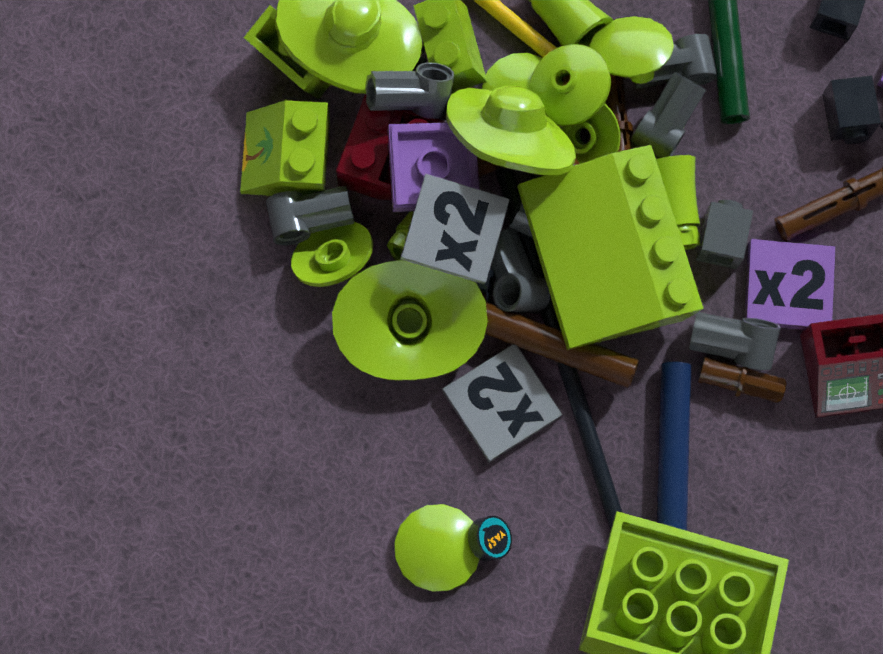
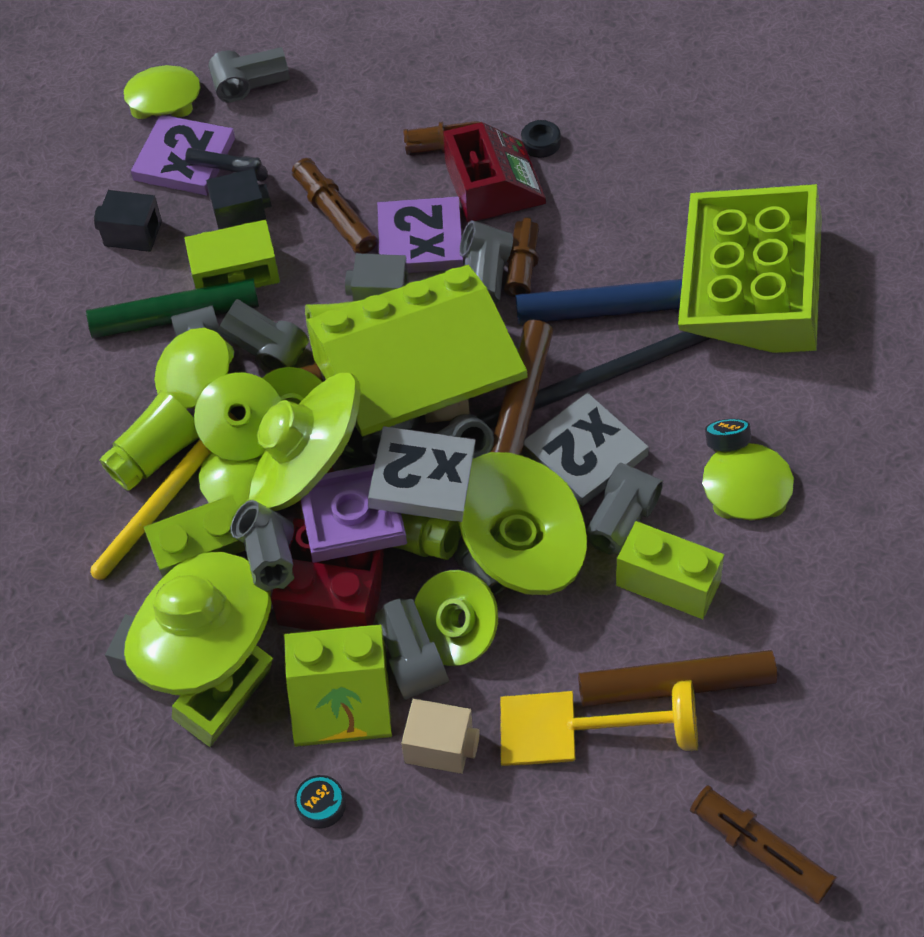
camera: 90 degrees left, 20 degrees down
(73, 478) = (712, 806): none -> reddish brown pin
(189, 127) = (320, 801): none -> black tile
(220, 316) = (544, 725): none -> yellow piece
(222, 226) = (439, 736): none -> tan brick
(242, 438) = (659, 679): none -> reddish brown piece
(345, 449) = (669, 569): none -> lime brick
(433, 429) = (627, 499): none -> dark grey piece
(777, 98) = (233, 256): none -> lime brick

